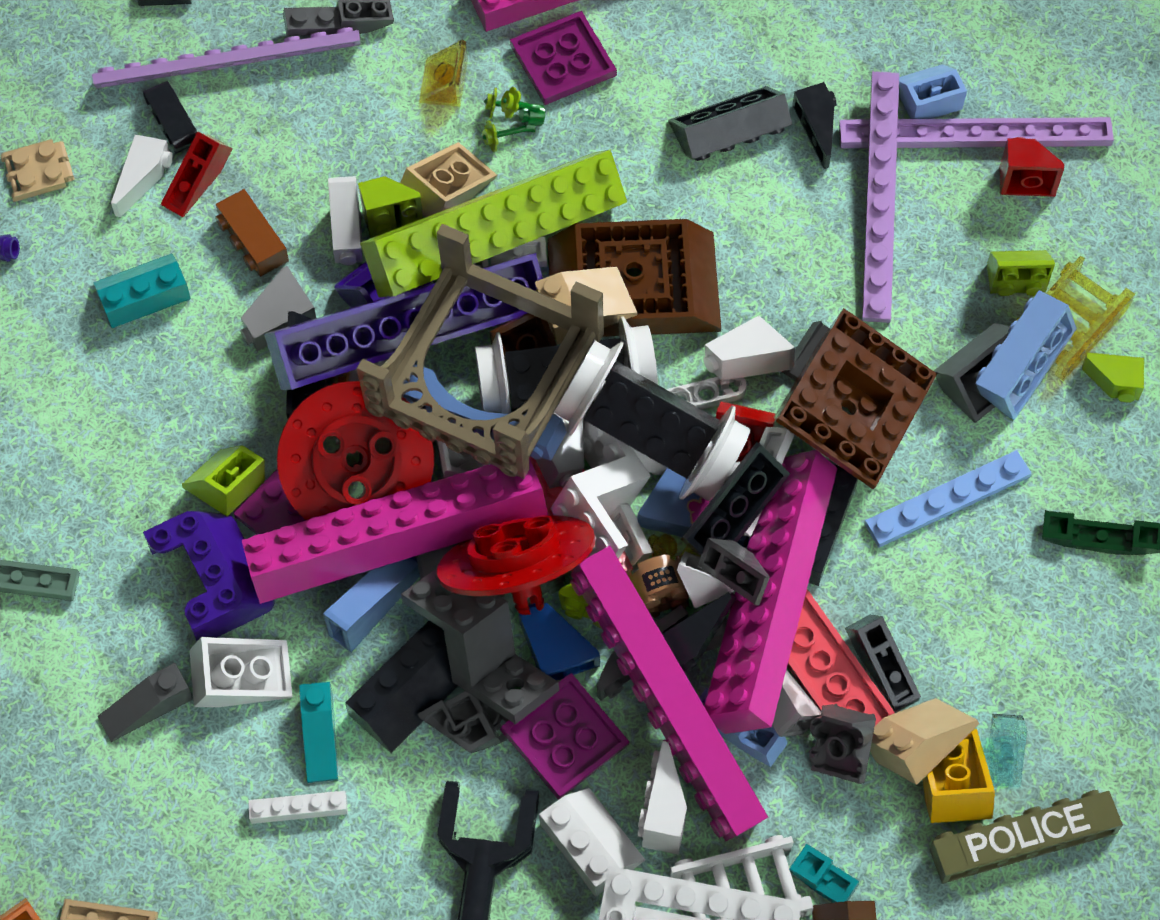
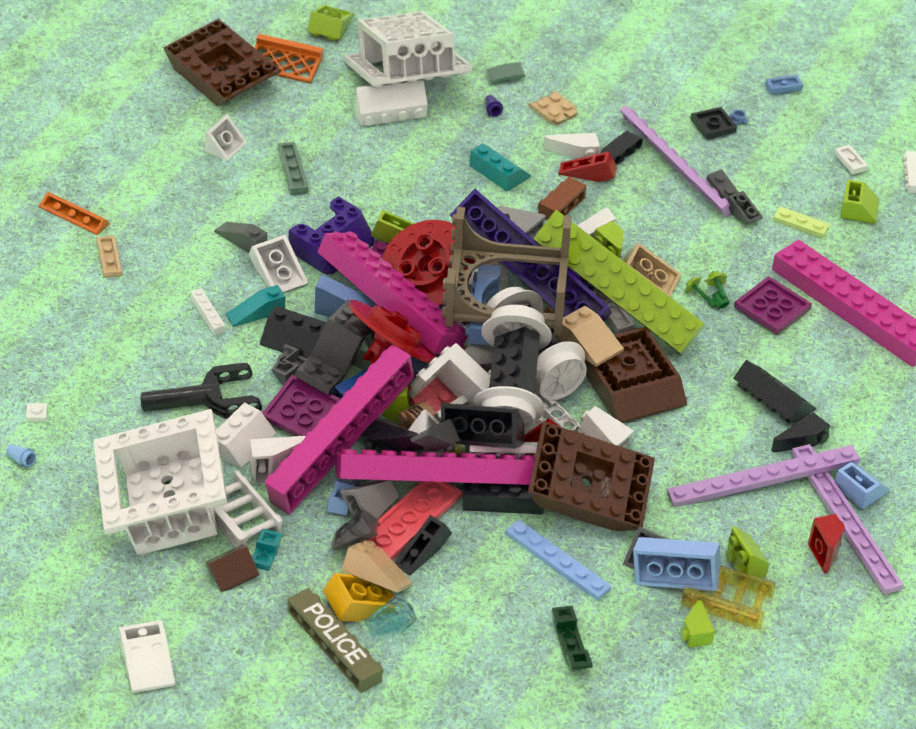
camera: 65 degrees right, 20 degrees down
(445, 76) = (725, 258): clear yellow slope -> none

